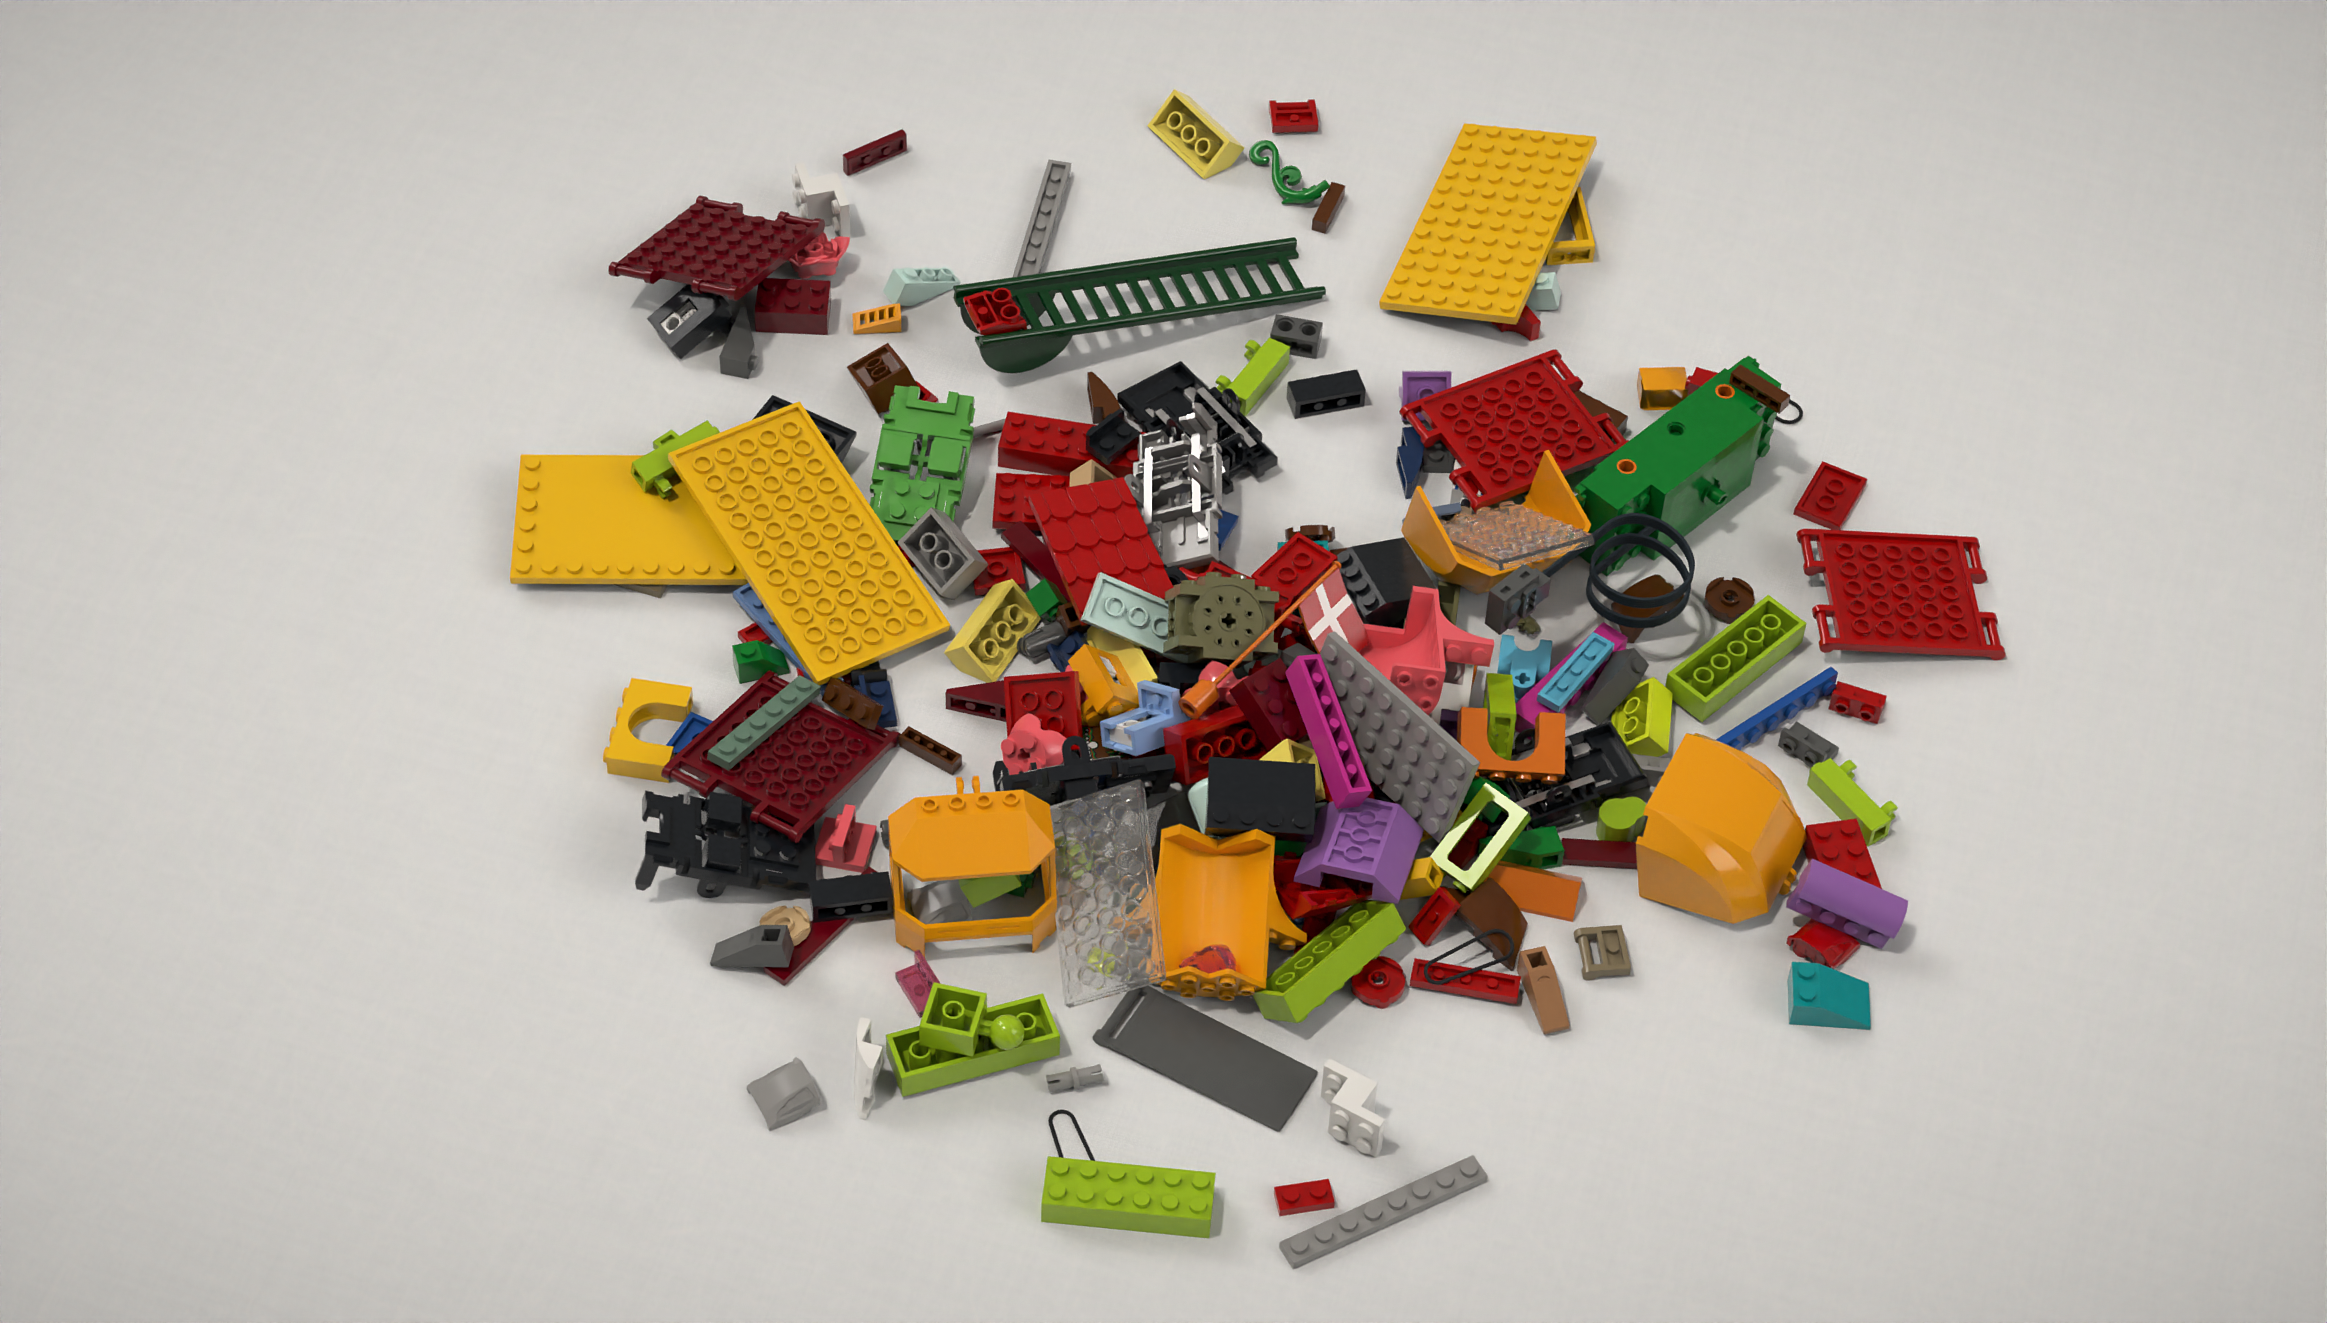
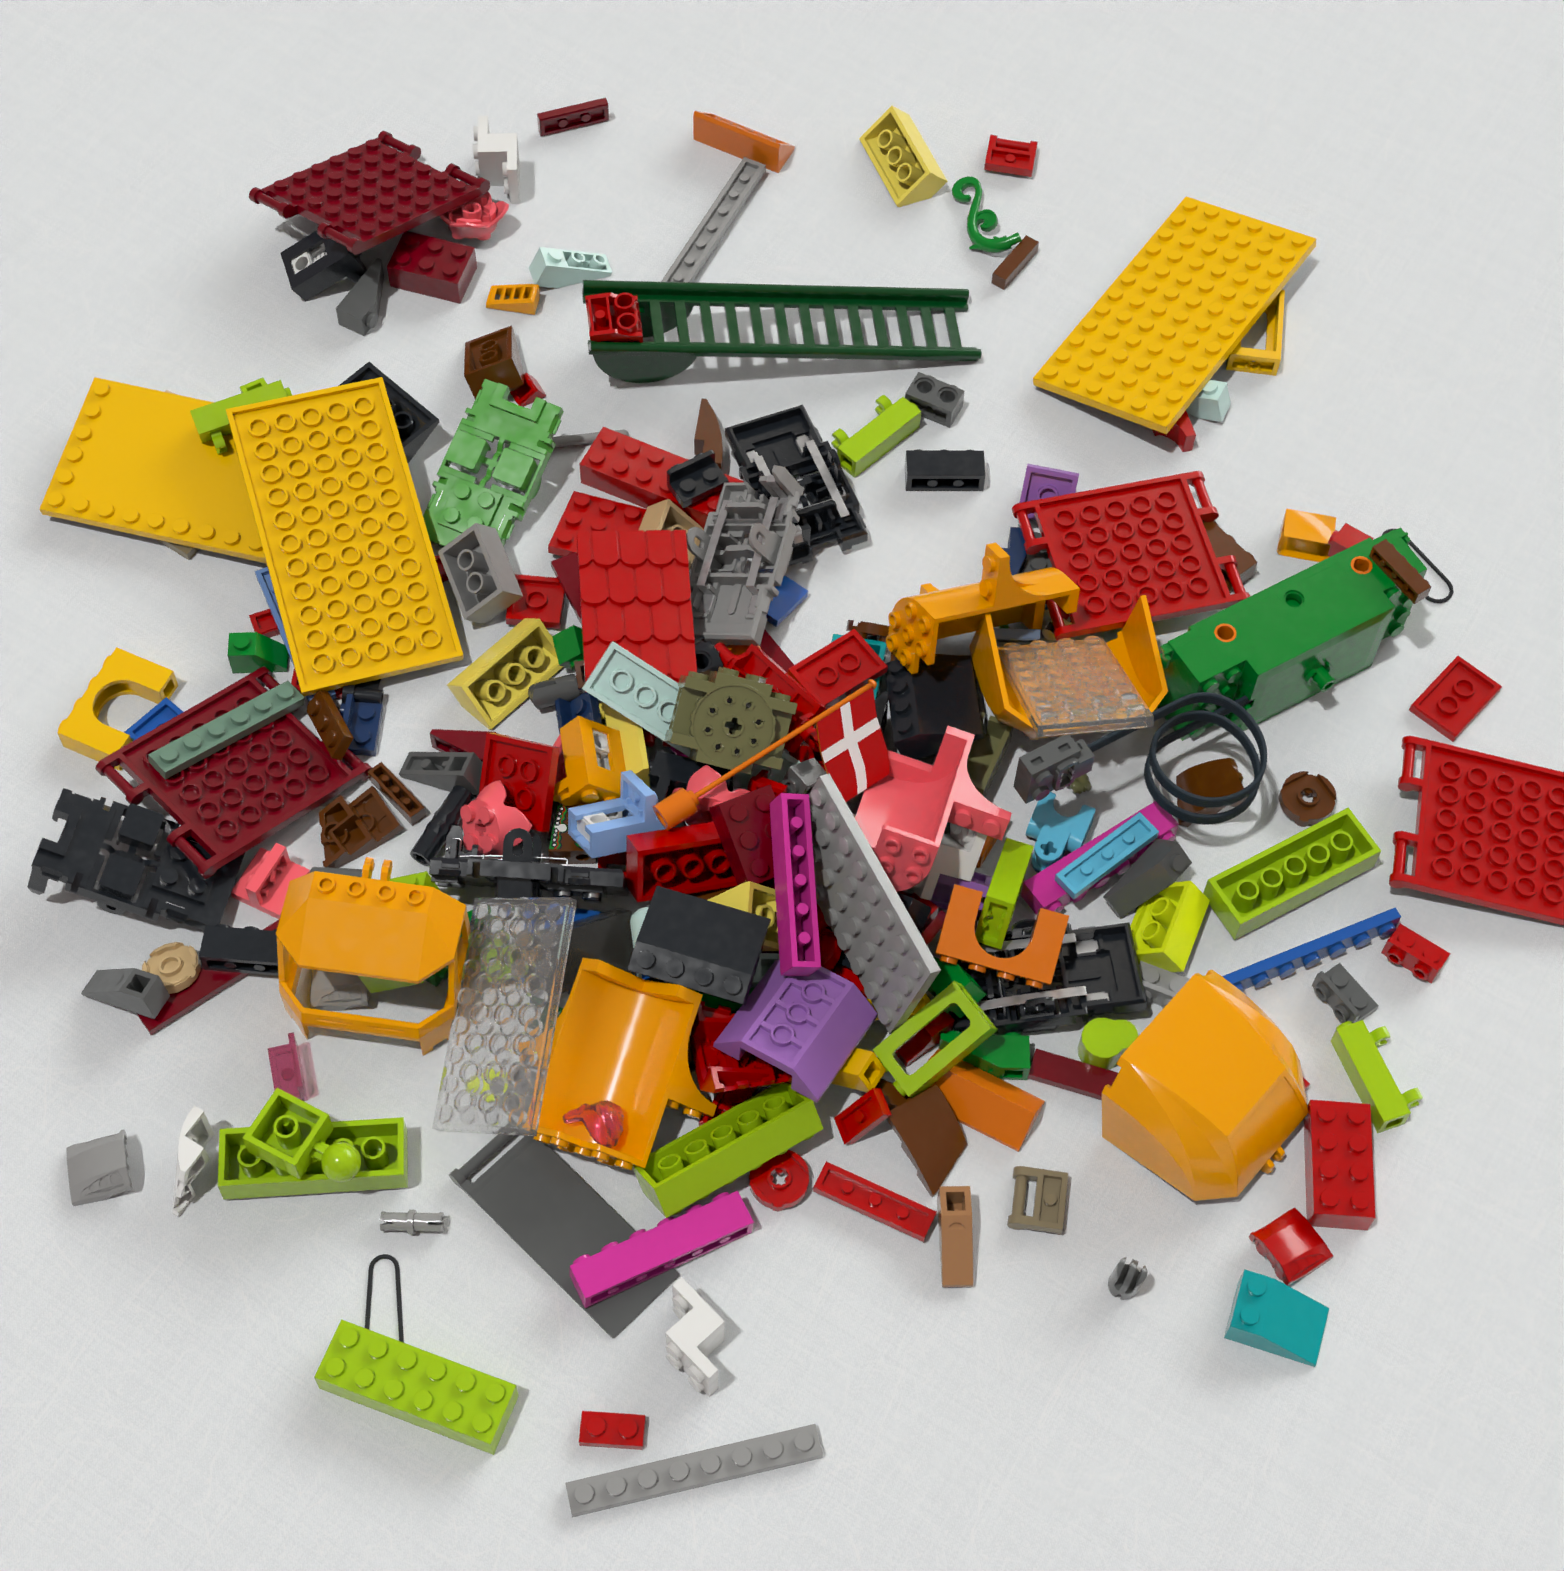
camera: 15 degrees right, 10 degrees up
(904, 780) = (356, 827): none -> reddish brown slope
(970, 722) = (444, 769): none -> dark grey slope
(984, 760) = (438, 828): none -> black axle
(1038, 146) = (740, 140): none -> orange slope
(1297, 1051) = (660, 1248): none -> dark pink brick
(1365, 508) = (949, 612): none -> light orange cylinder
(1474, 969) = (890, 1191): black piece -> none
(1696, 992) = (1126, 1279): none -> dark grey arm
(1848, 904) = (1329, 1214): medium lavender brick -> none

